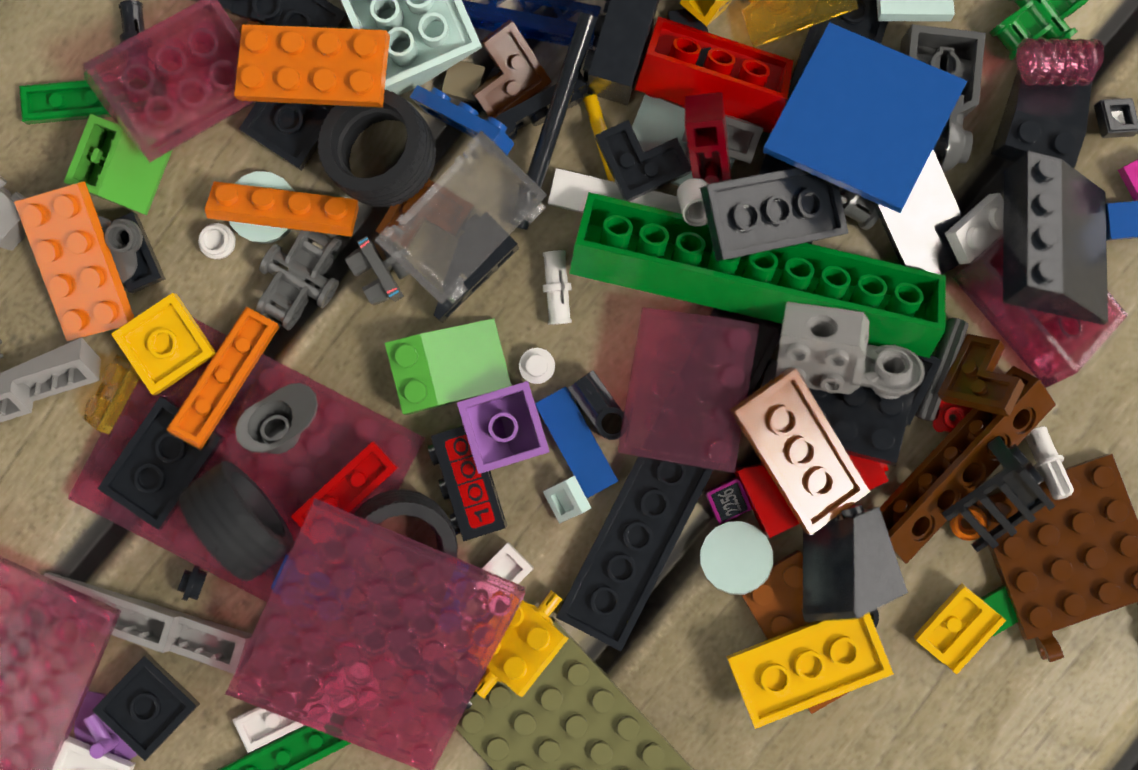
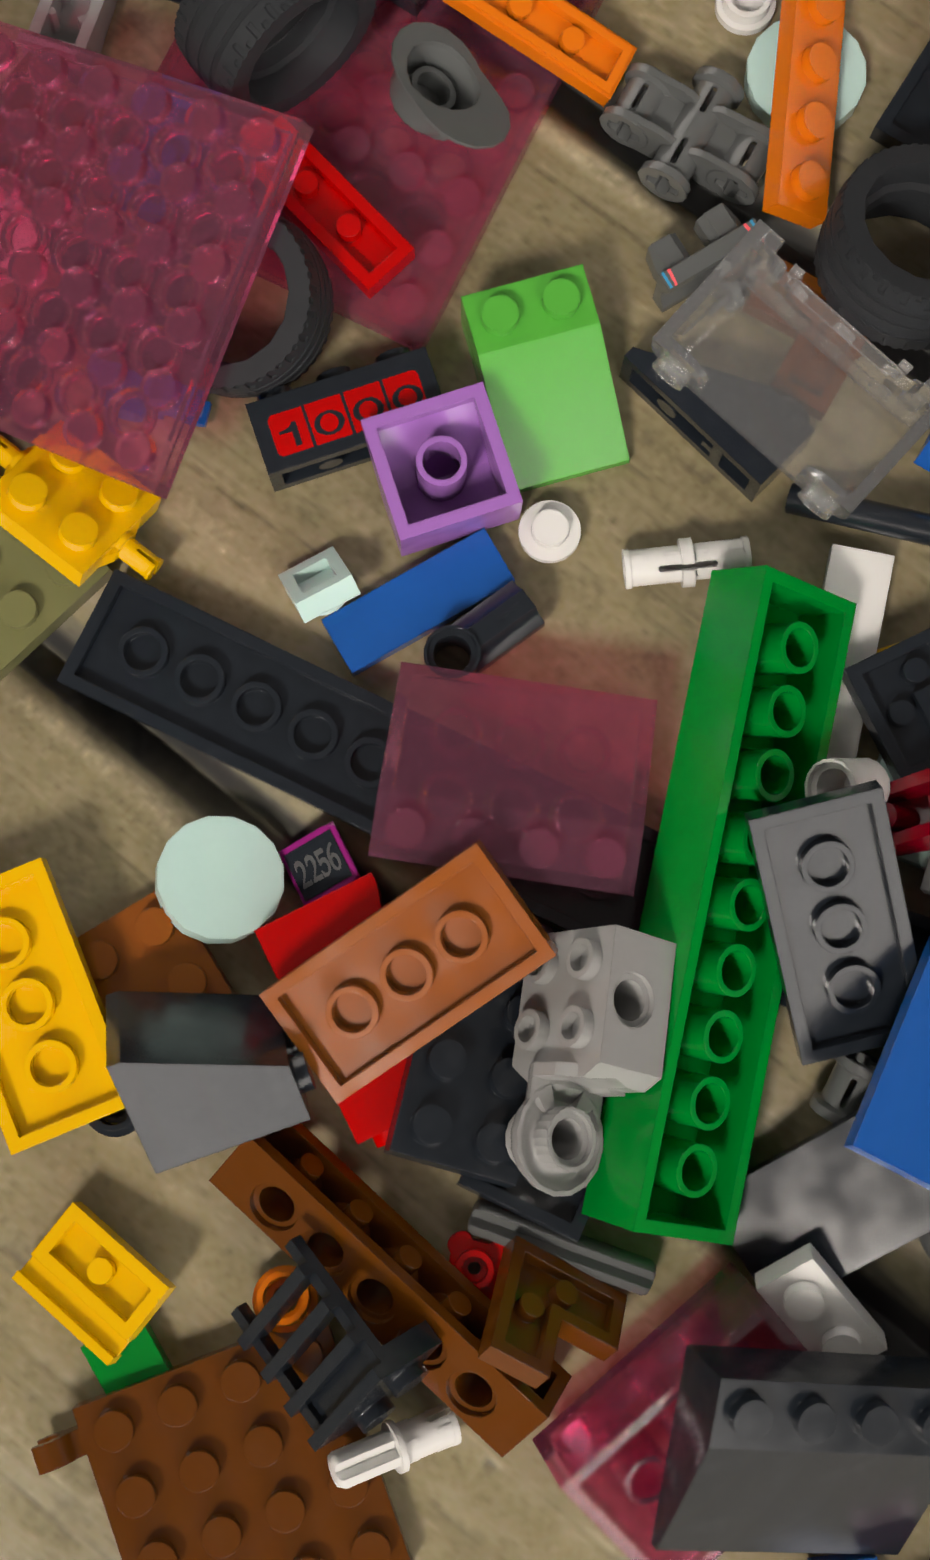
camera: 85 degrees right, 5 degrees down
(509, 564) = (204, 488): white plate -> none

